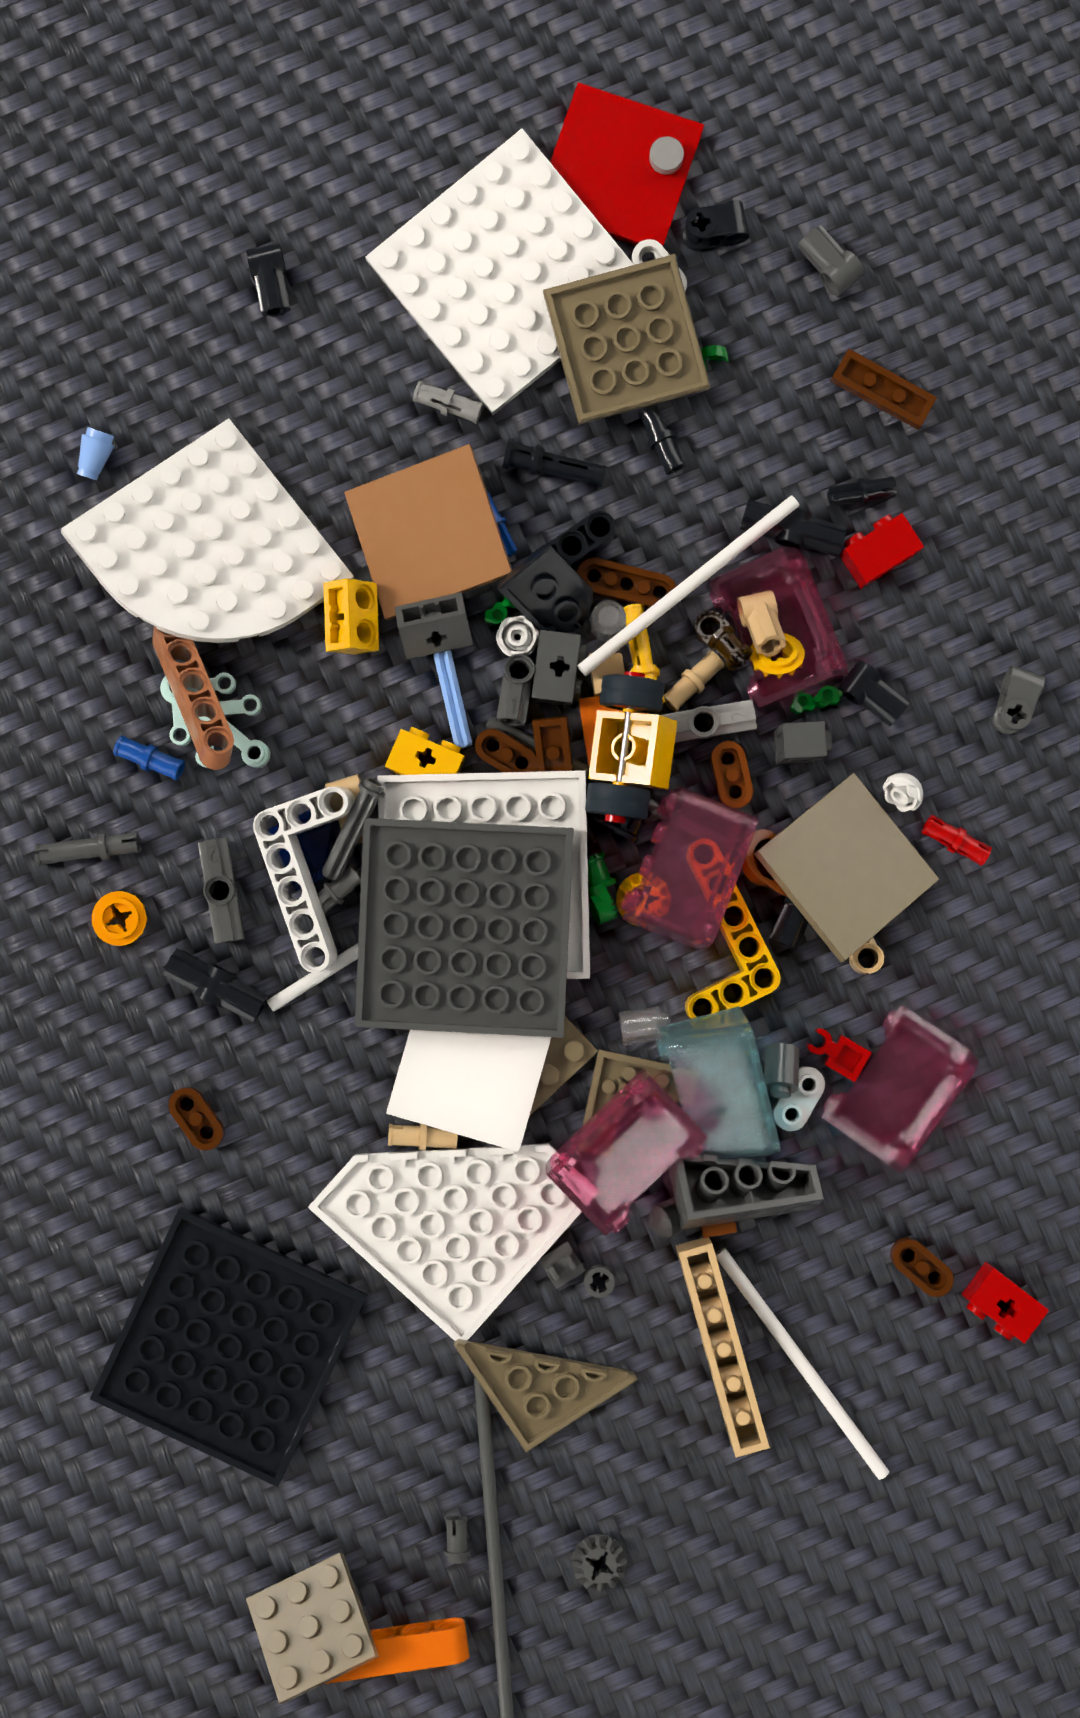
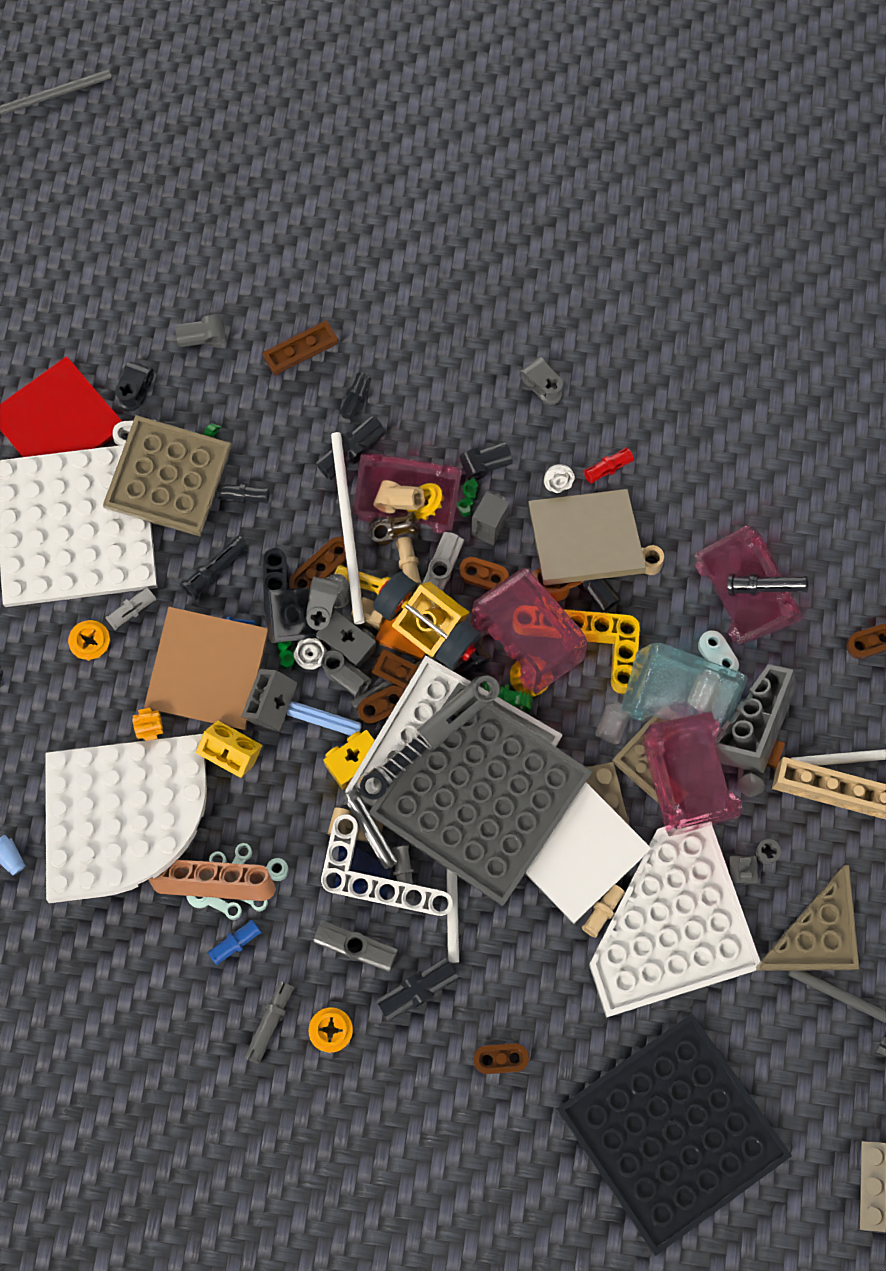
camera: 55 degrees left, 15 degrees down
(326, 509) = (147, 724): none -> light orange gear
(372, 369) = (87, 629): none -> light orange gear
(489, 835) = (431, 734): none -> piece
(577, 613) = (321, 598): none -> piece
(666, 155) = (70, 387): light grey tile -> none
(728, 1115) = (705, 691): none -> clear brick
(781, 1069) = (695, 647): dark grey brick -> none
(843, 1055) = (705, 610): red plate -> none
(881, 549) = (399, 405): red brick -> none
(906, 1096) = (754, 584): none -> black pin

